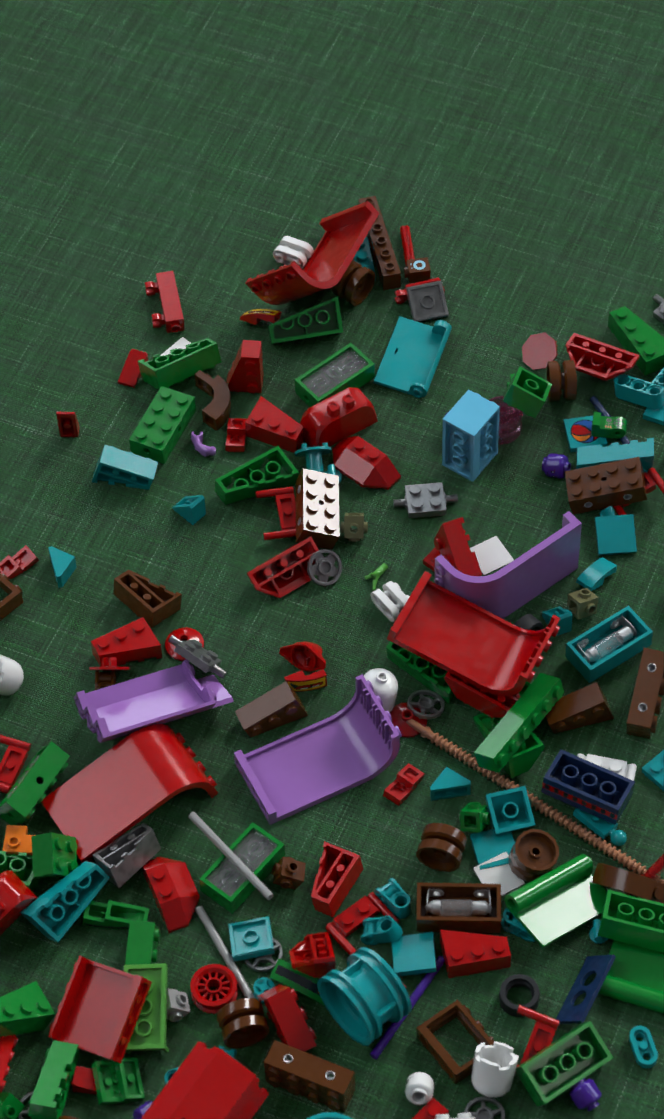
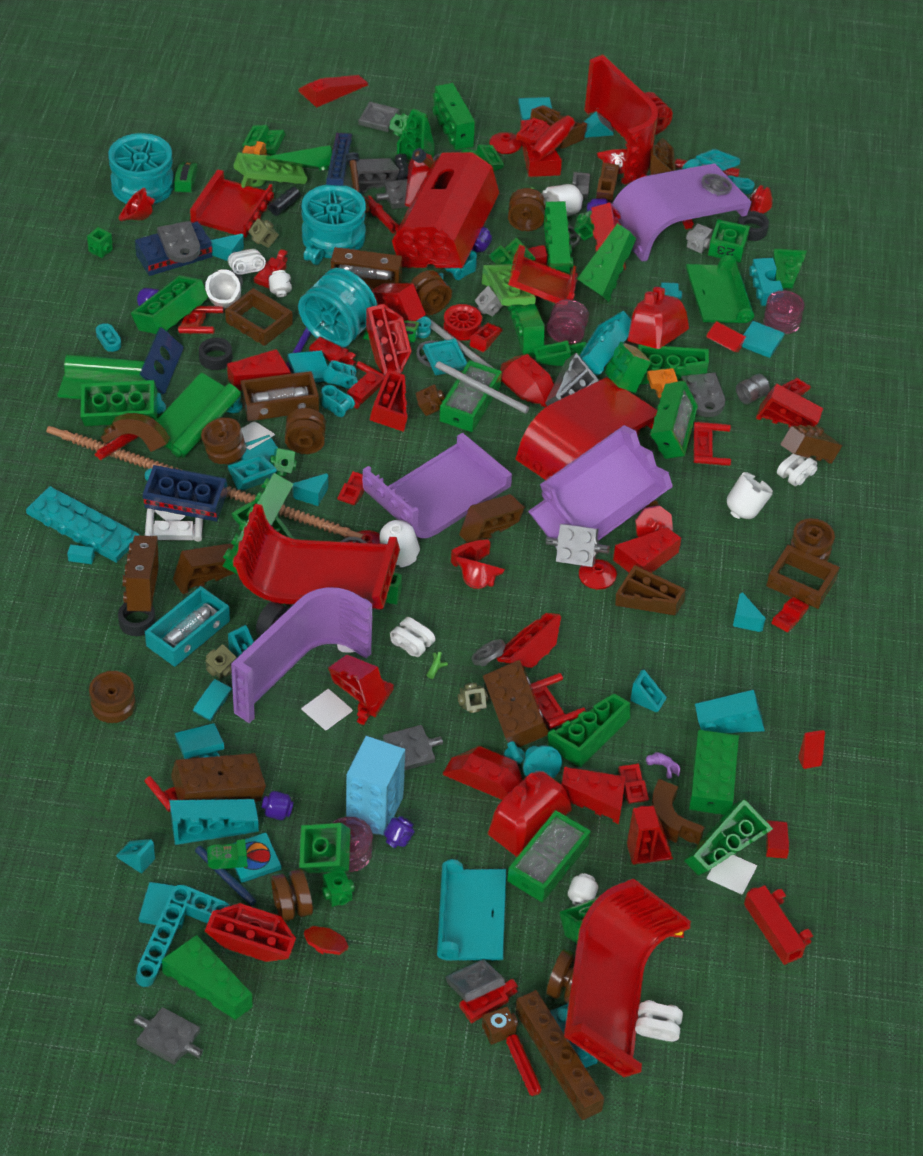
camera: 160 degrees right, 5 degrees down
(93, 943) = (568, 321): none -> clear pink wheel
(184, 972) = (485, 337): none -> red slope
(315, 352) = (582, 889): none -> white head

